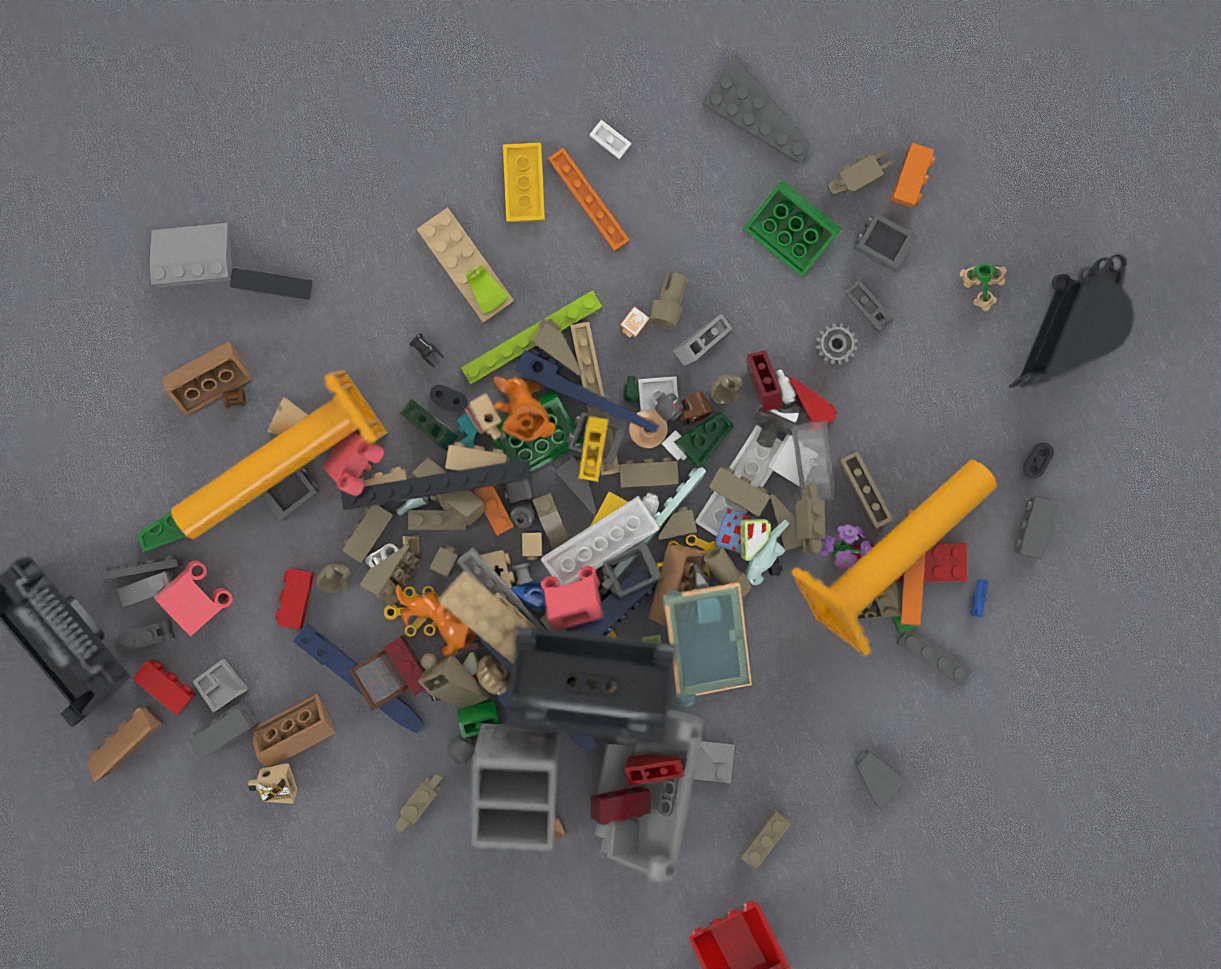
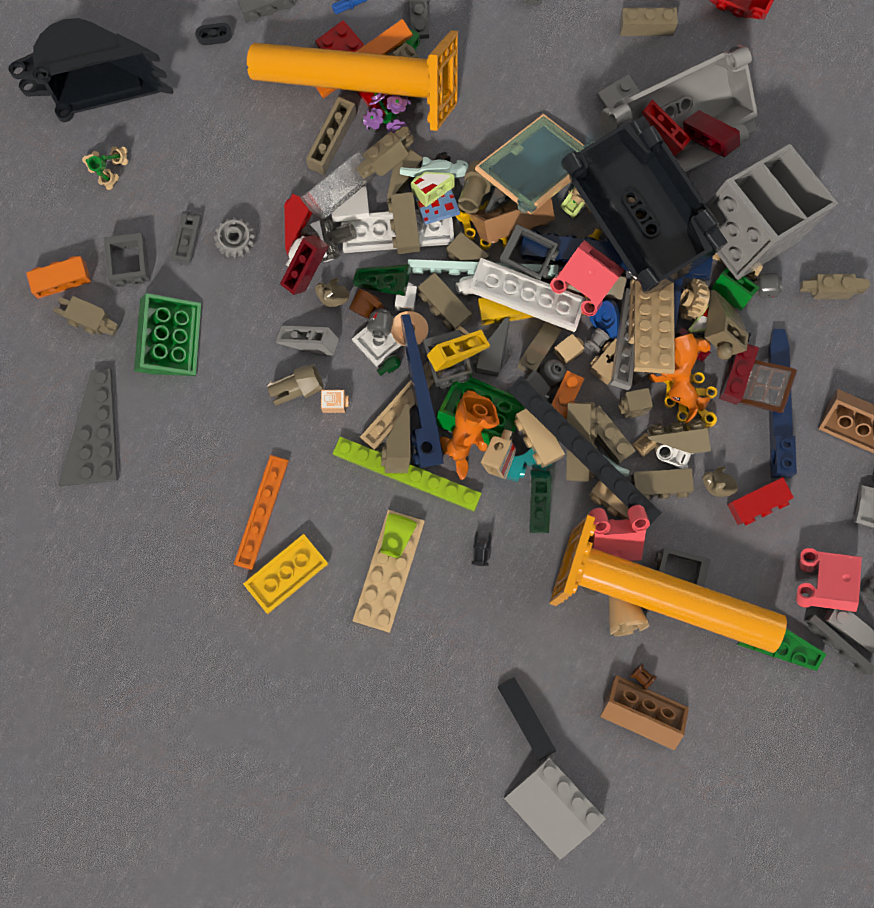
camera: 125 degrees left, 10 degrees down
(448, 397) = (506, 502): black plate -> none
(610, 139) = (199, 530): white plate -> none

